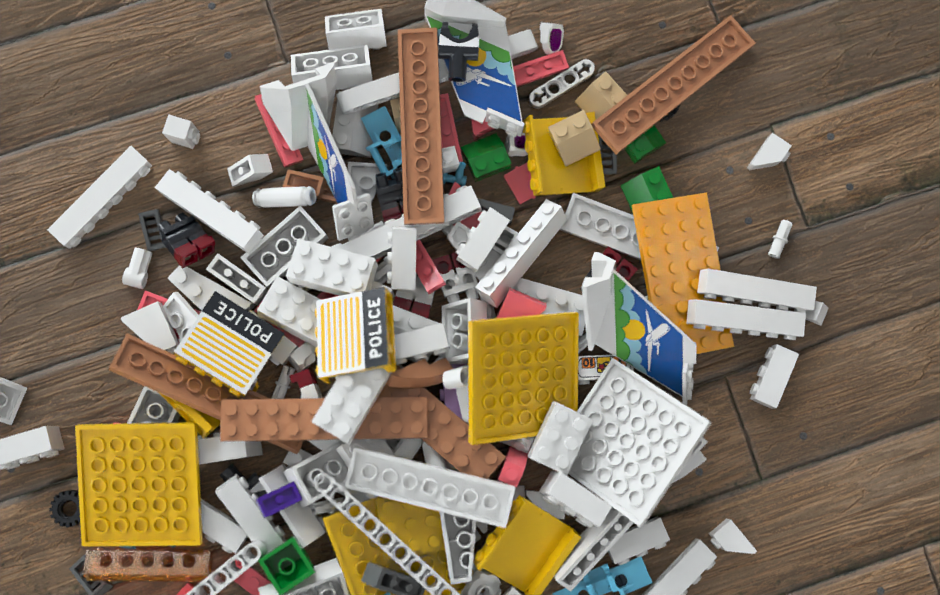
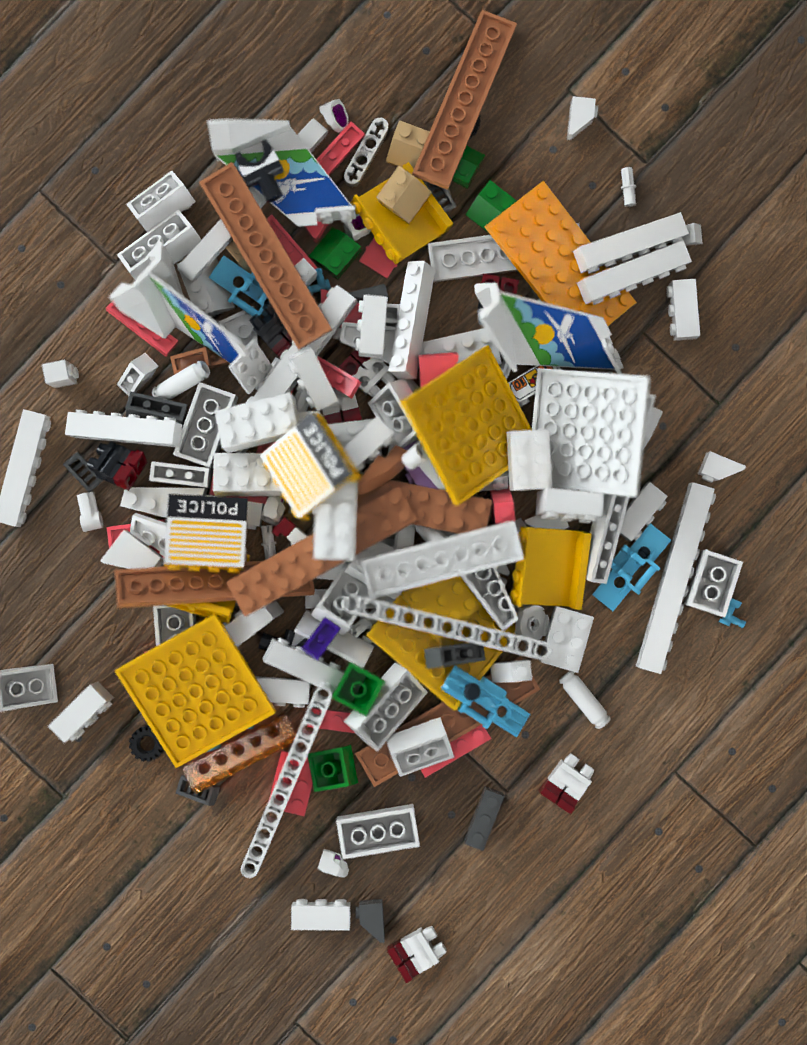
camera: 15 degrees left, 5 degrees up
(244, 203) = (152, 406): none -> dark grey brick

